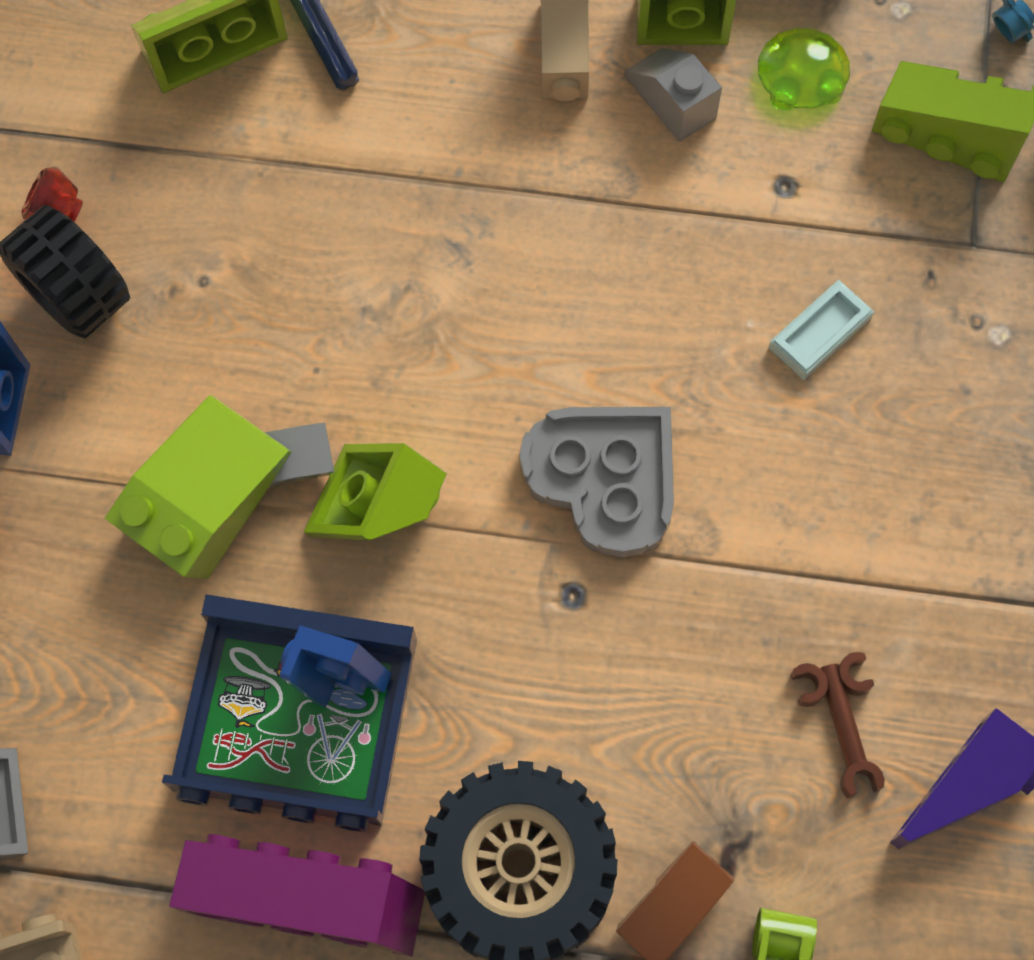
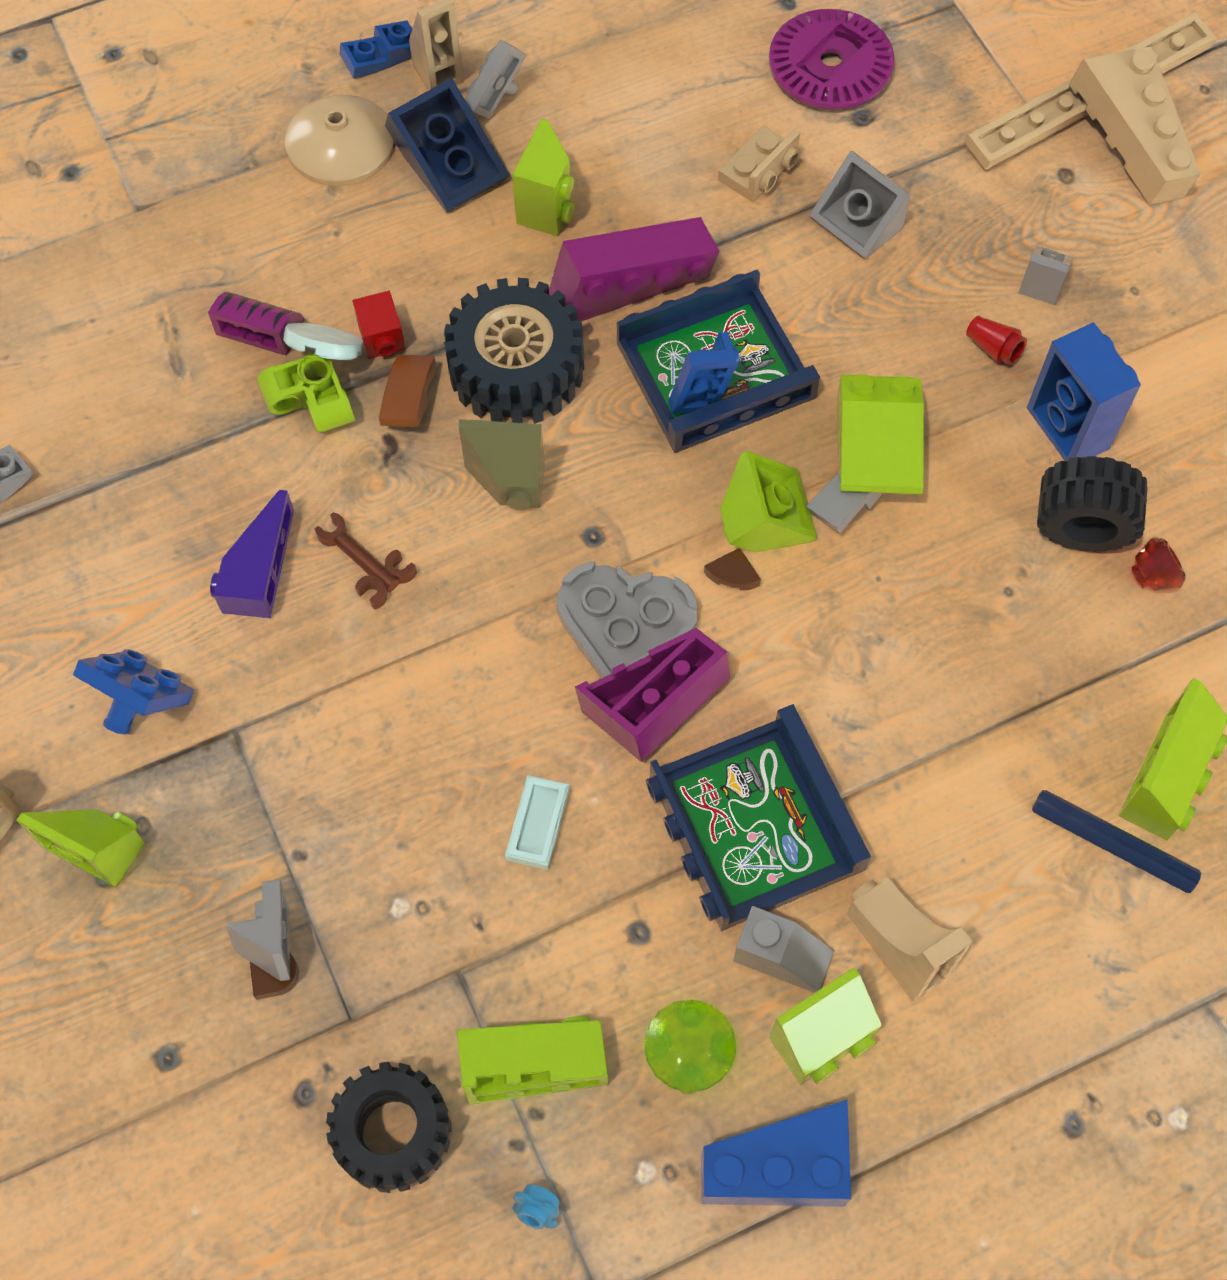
camera: 145 degrees right, 5 degrees down
(458, 457) = (733, 571): none -> reddish brown tile
(613, 212) = (758, 820): none -> panel
(622, 713) = (505, 460): none -> olive slope
(633, 363) = (657, 693): none -> magenta wedge

